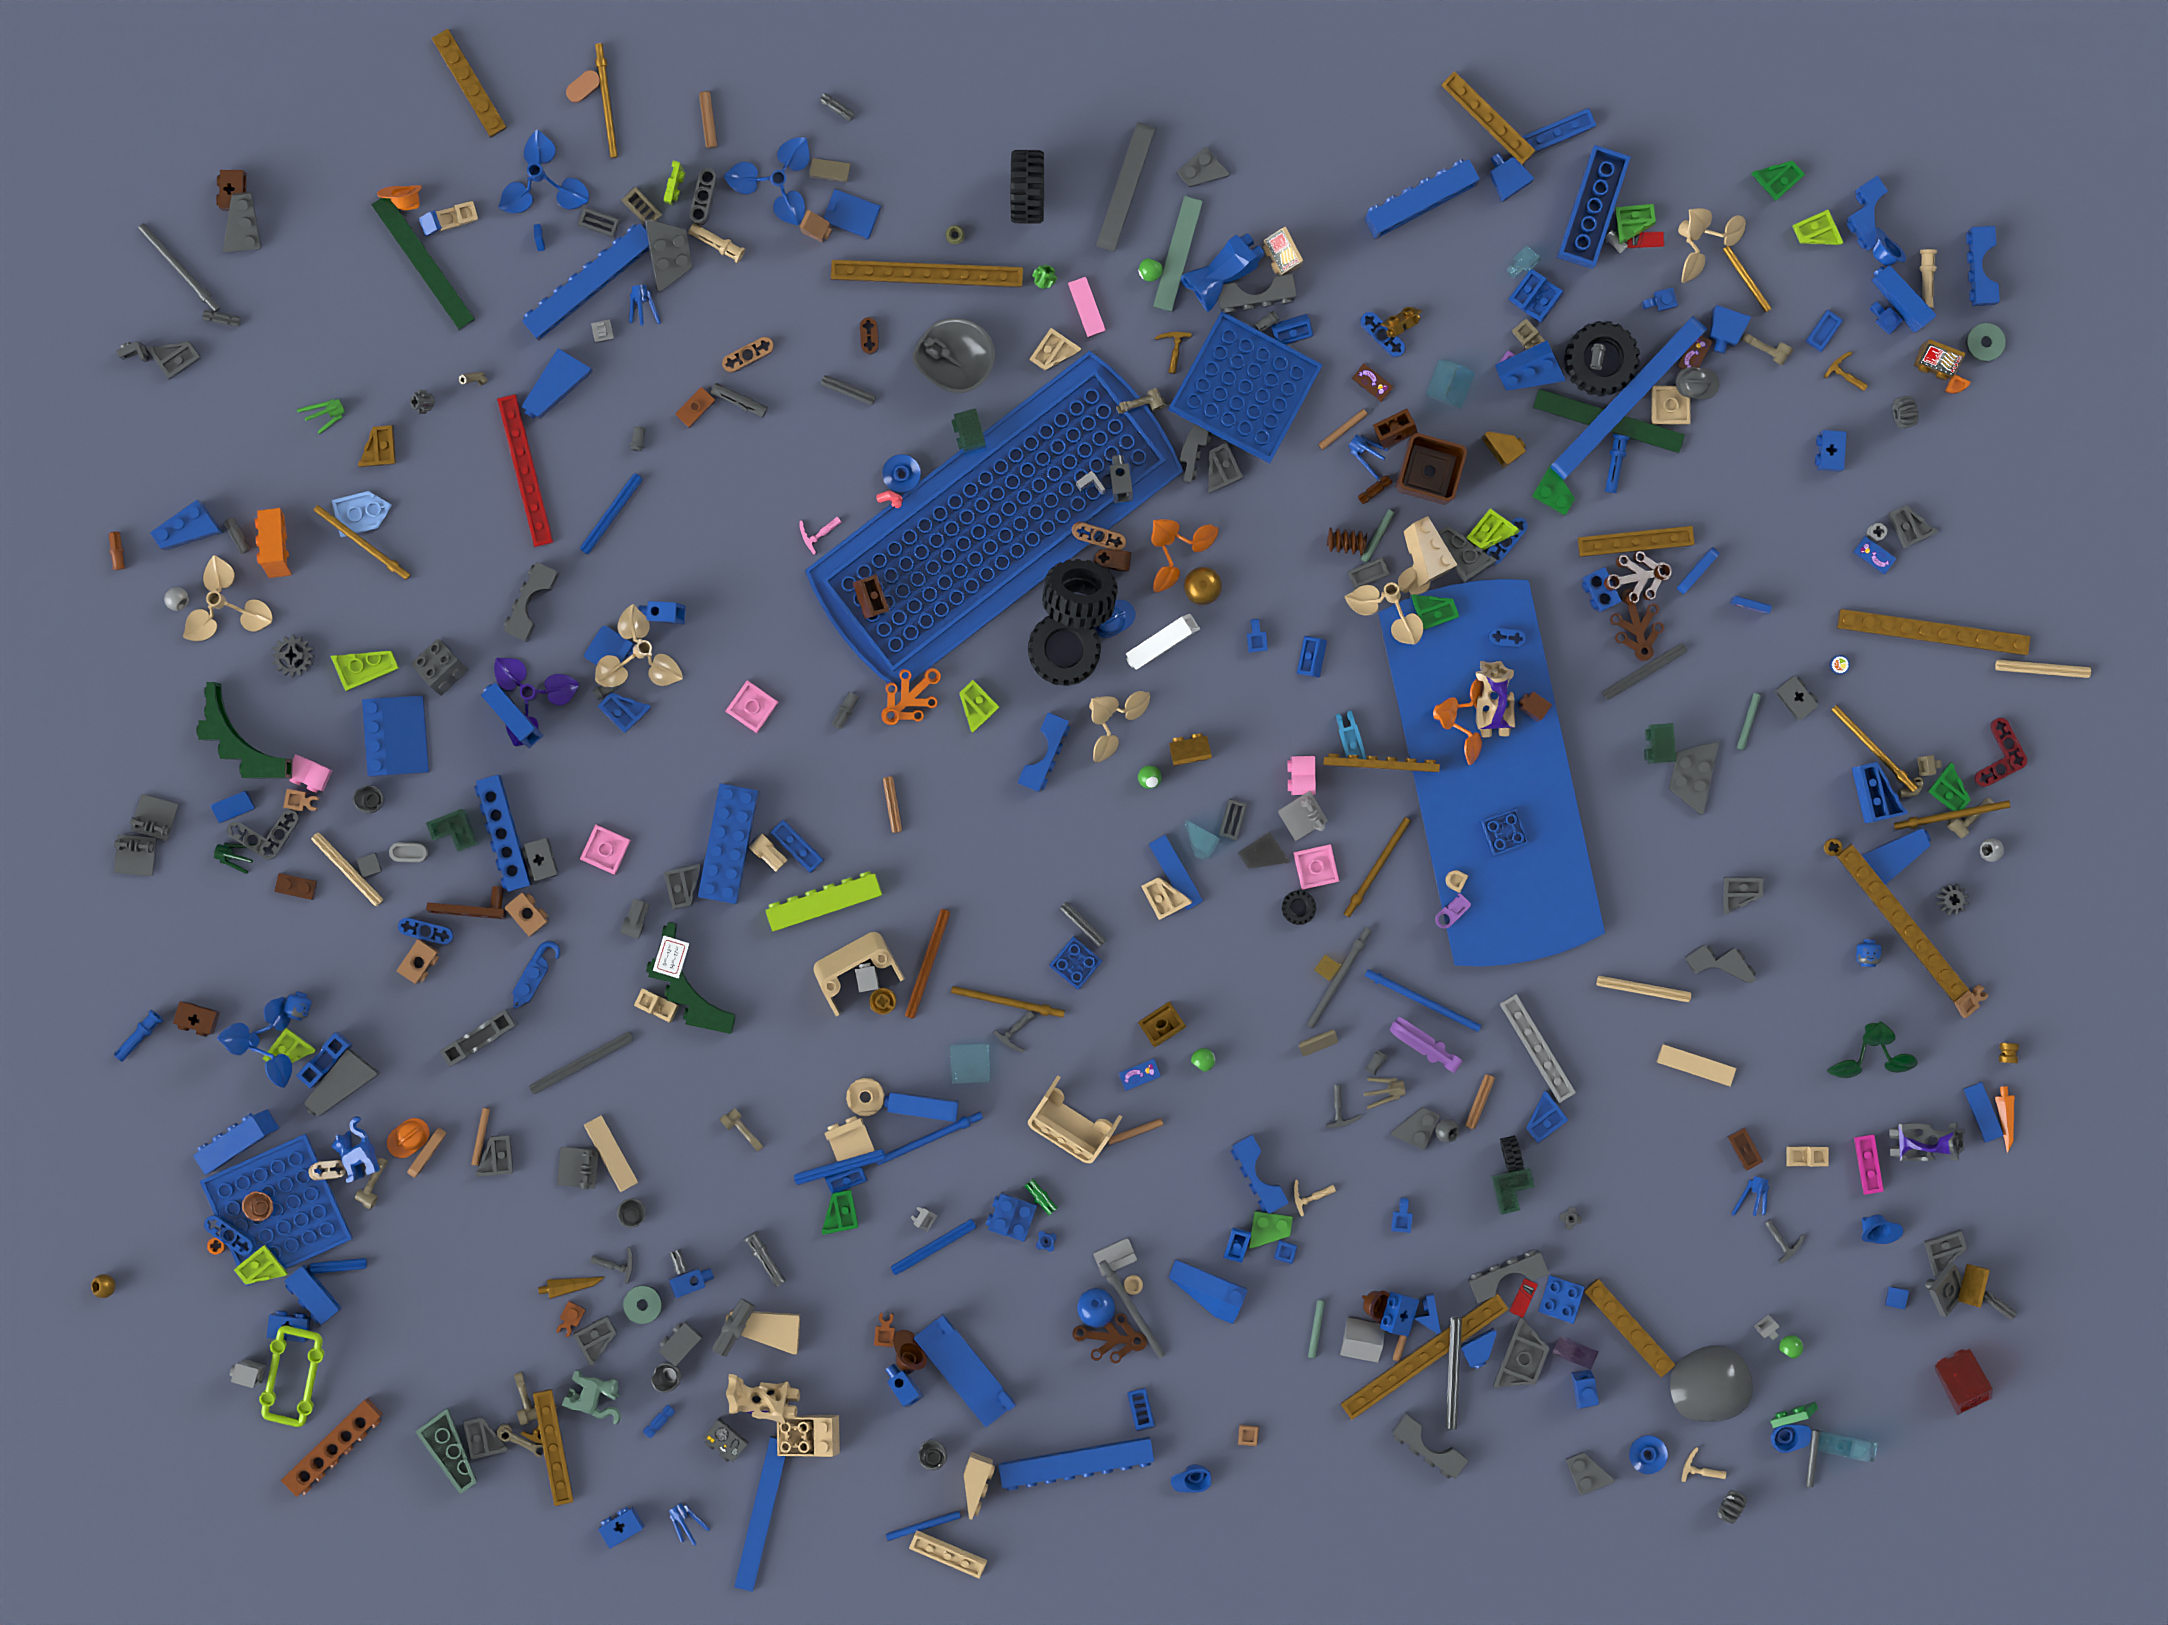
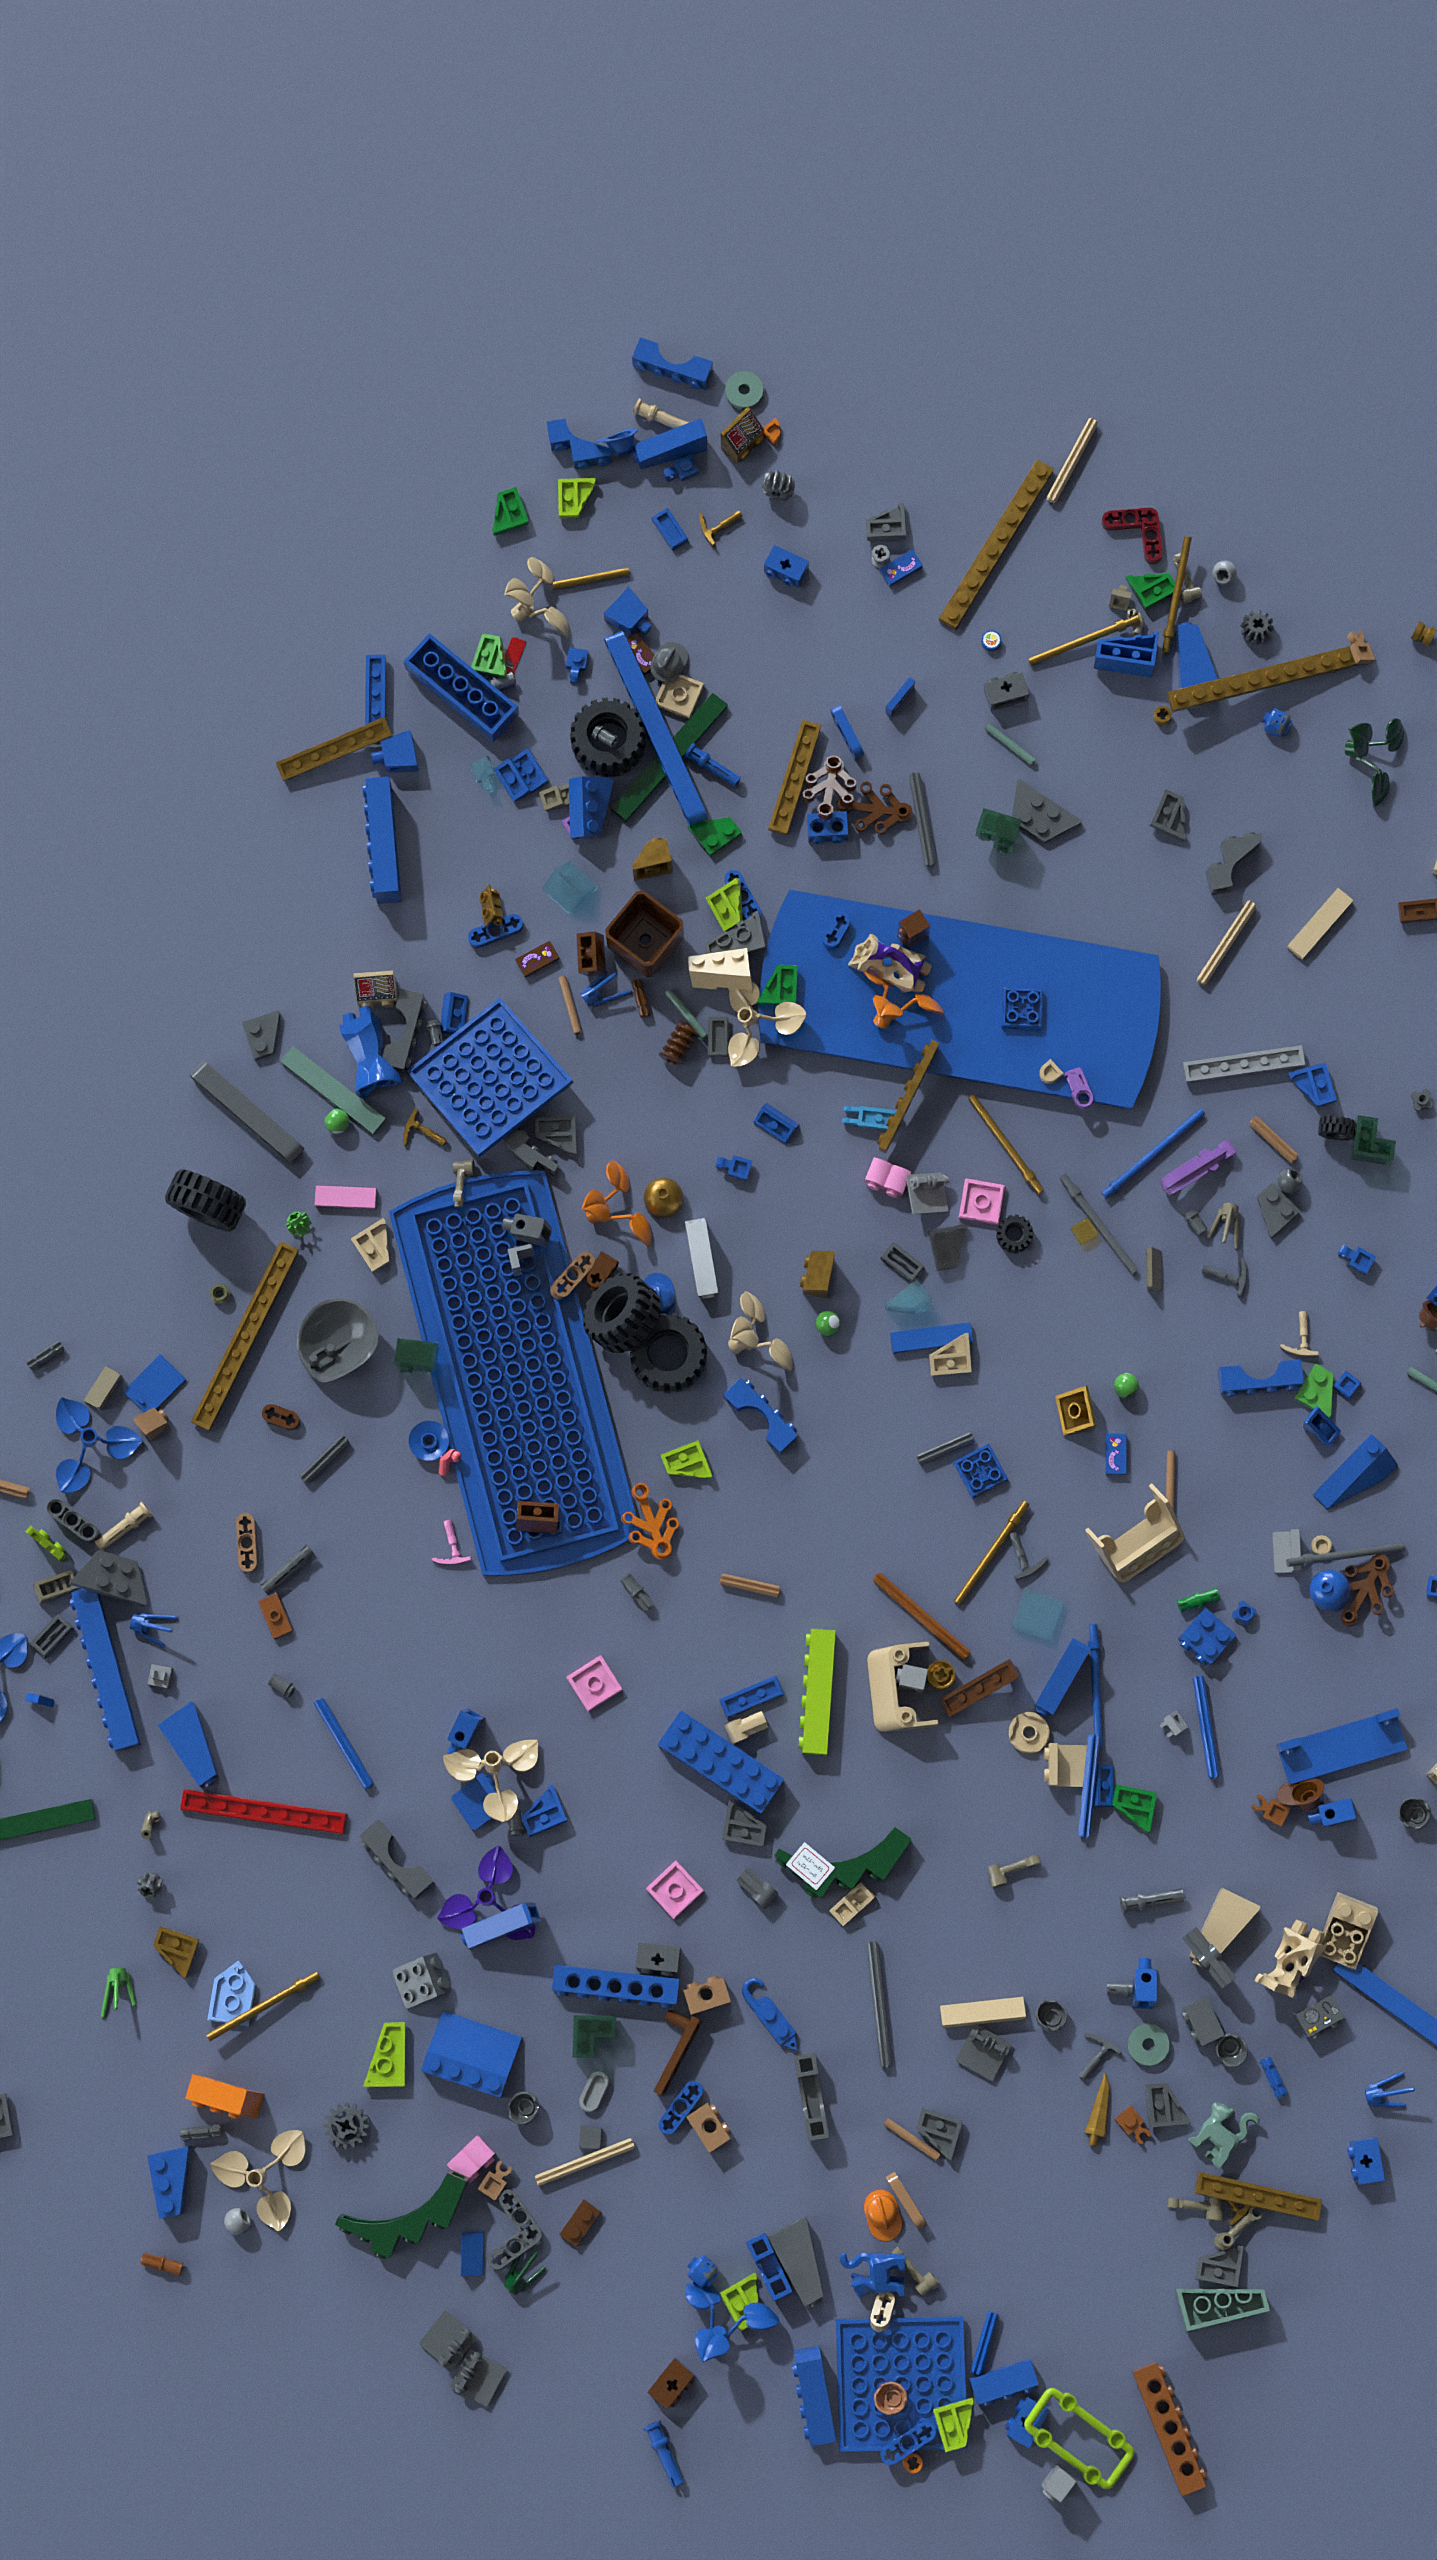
camera: 65 degrees left, 10 degrees down
(885, 1040) = (980, 1687): none -> reddish brown piece
(1780, 354) = (673, 575): dark tan brick -> none

